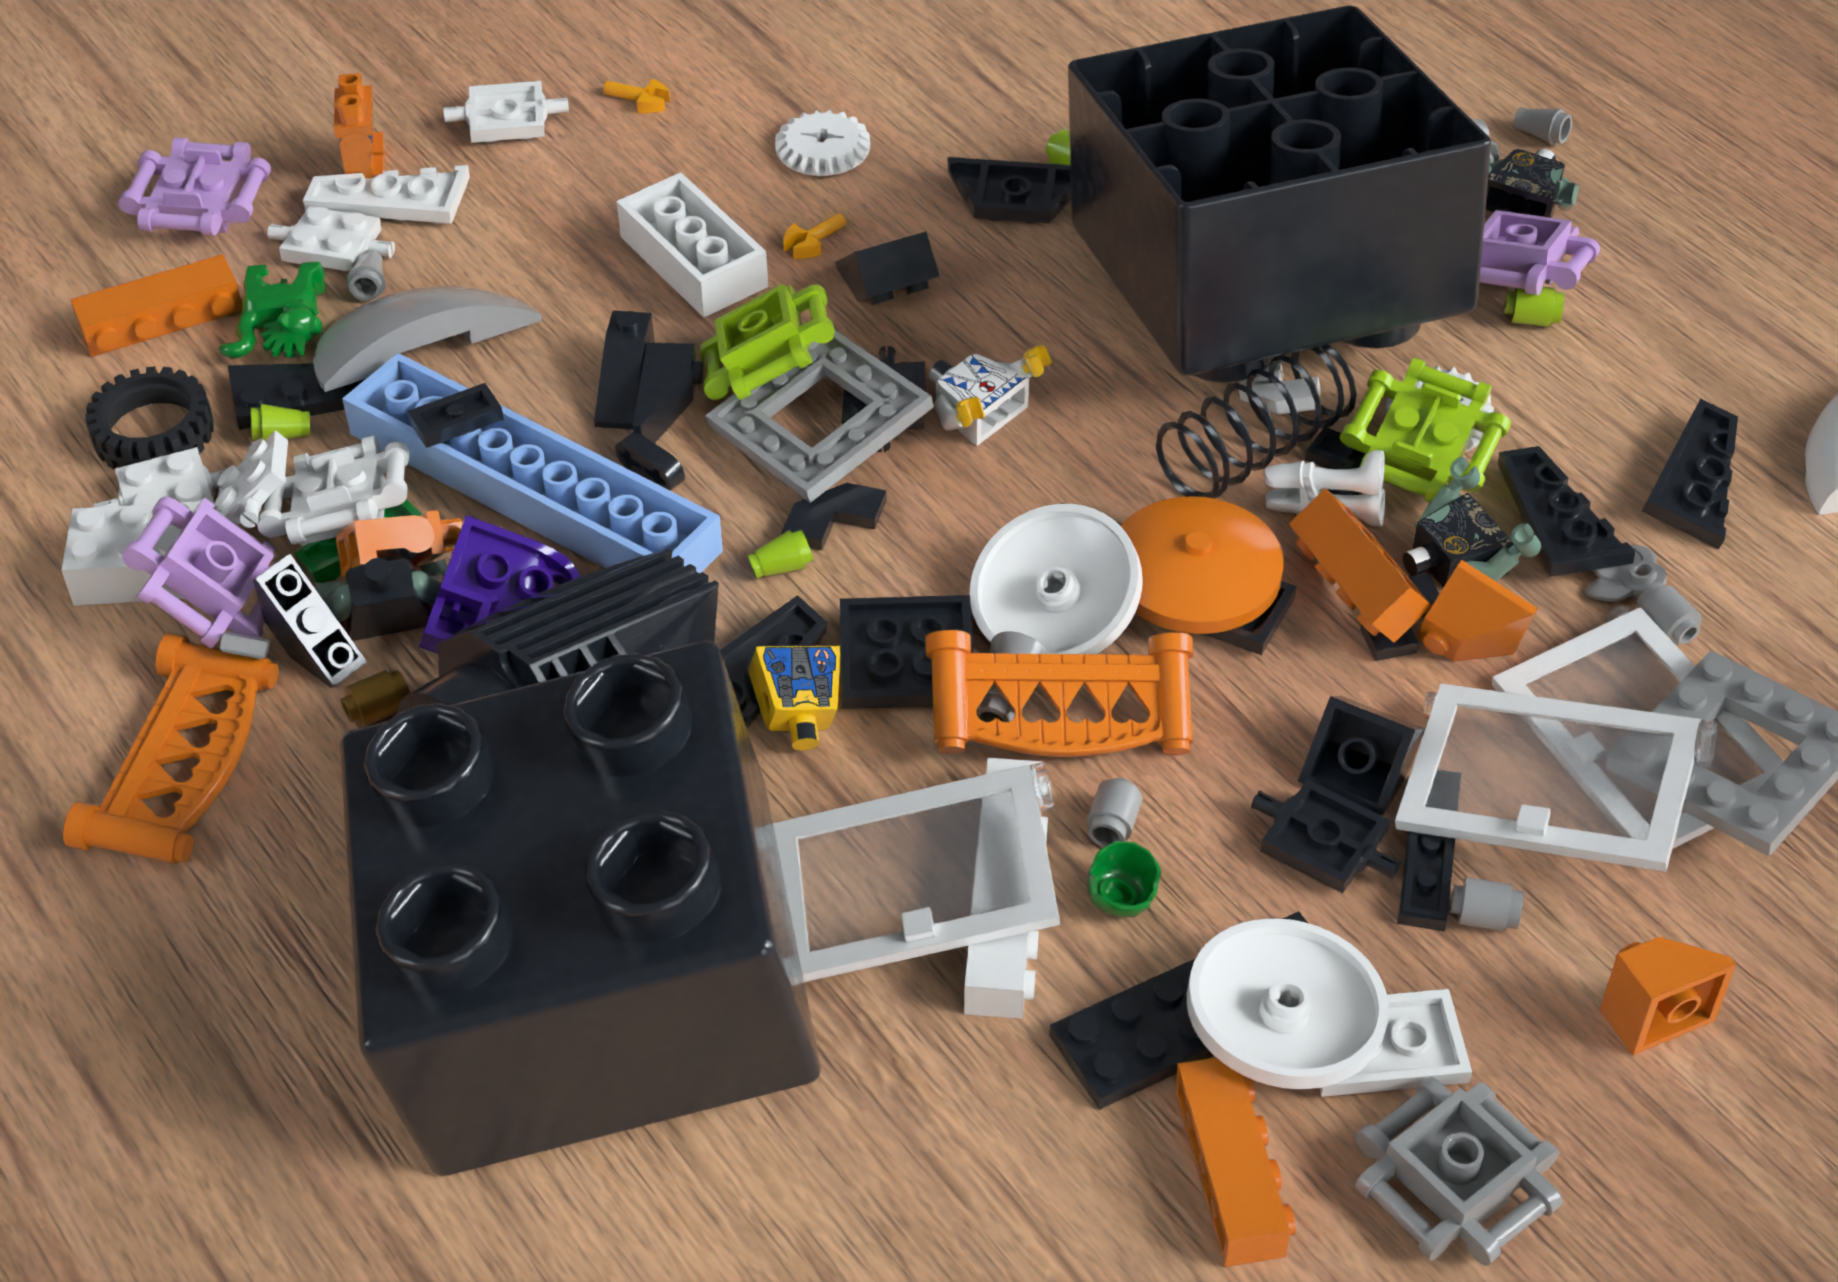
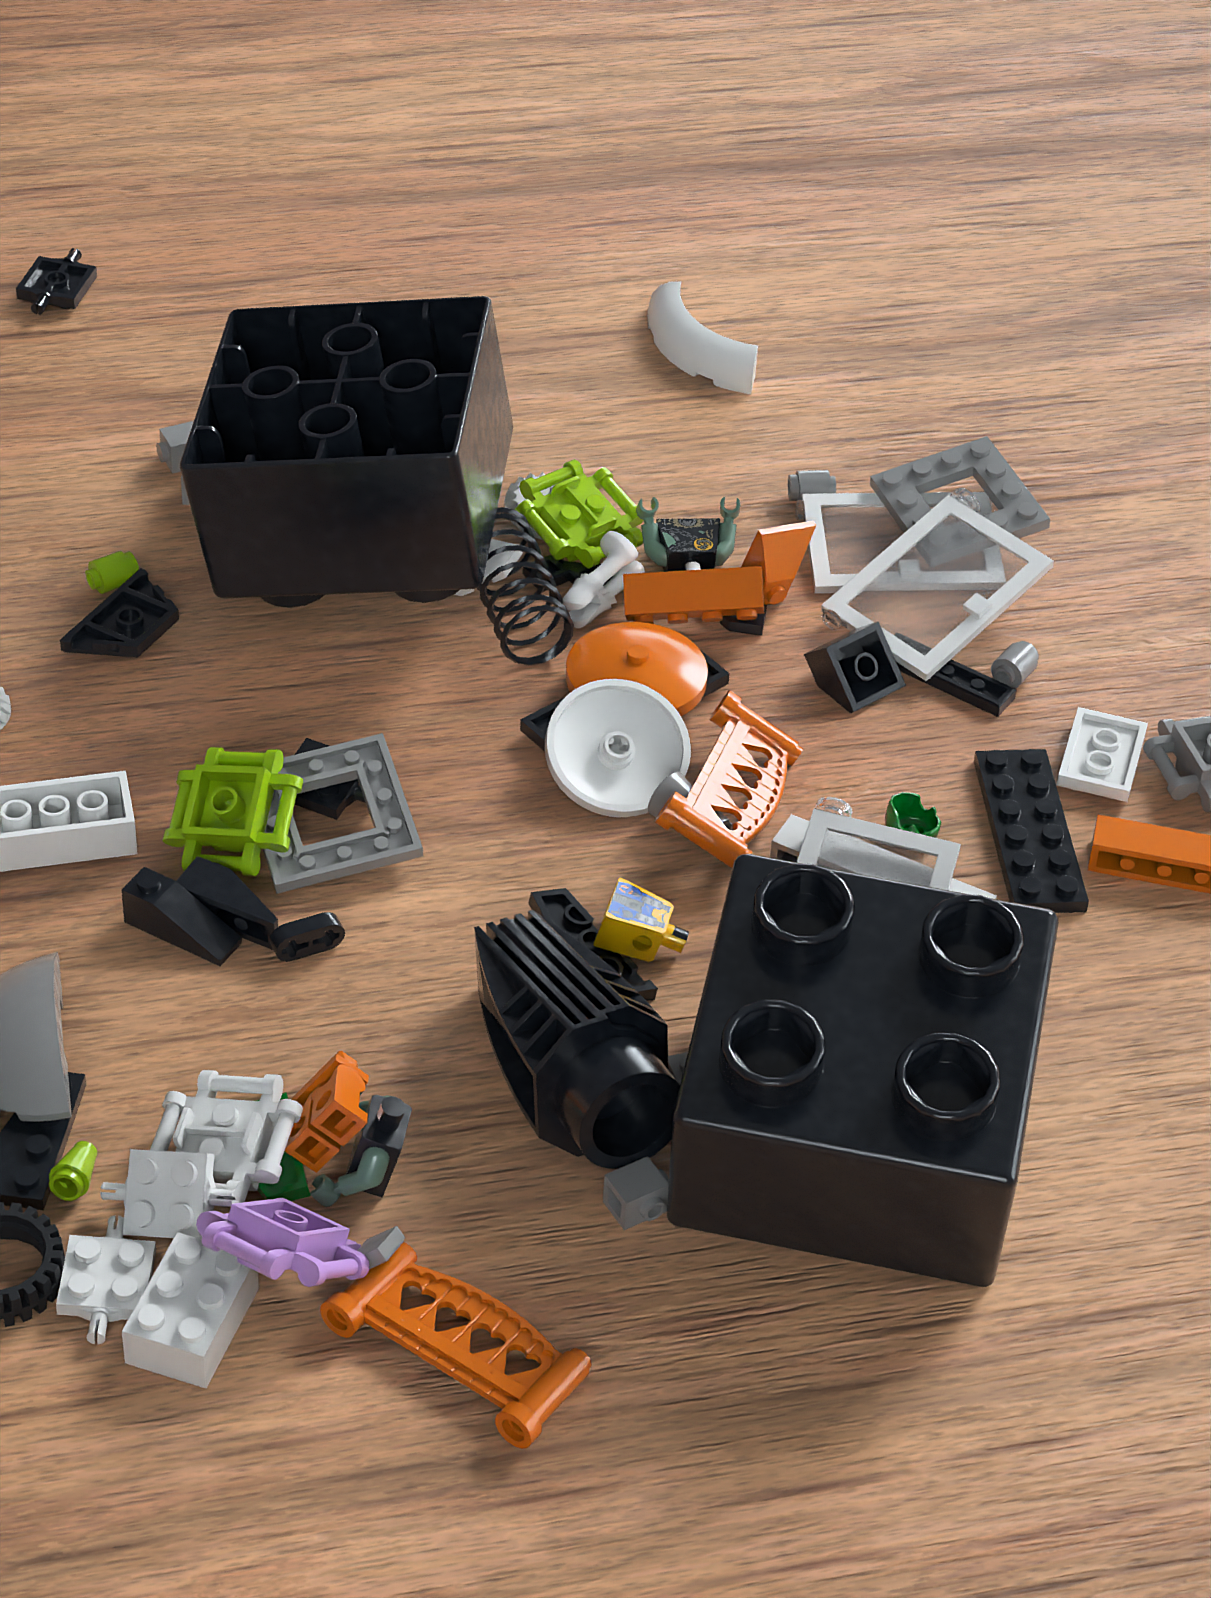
camera: 70 degrees left, 5 degrees down
(305, 623) = (376, 1202): slope -> none
(374, 697) = (479, 1186): pearl gold brick -> none
(455, 415) = (210, 1015): black plate -> none
(490, 573) = (430, 1069): dark purple slope -> none
(536, 475) = (277, 1009): light blue brick -> none
(782, 555) = (469, 889): lime cone -> none
(807, 242) = (74, 765): light orange bar -> none
(843, 504) = (436, 866): black tile -> none
(886, 647) = (612, 846): black plate -> none
(889, 267) = (171, 720): black slope -> none
(984, 393) = (370, 711): torso -> none
(1113, 811) = (858, 801): light grey brick -> none
(1287, 1003) = (1072, 772): white dish -> none
(1325, 835) = (916, 714): black plate -> none
(1561, 518) = (689, 494): black wing -> none
(1627, 580) = (759, 490): light grey plate -> none
(1664, 991) = (1133, 616): orange slope -> none
(1697, 476) = (689, 422): black wing -> none

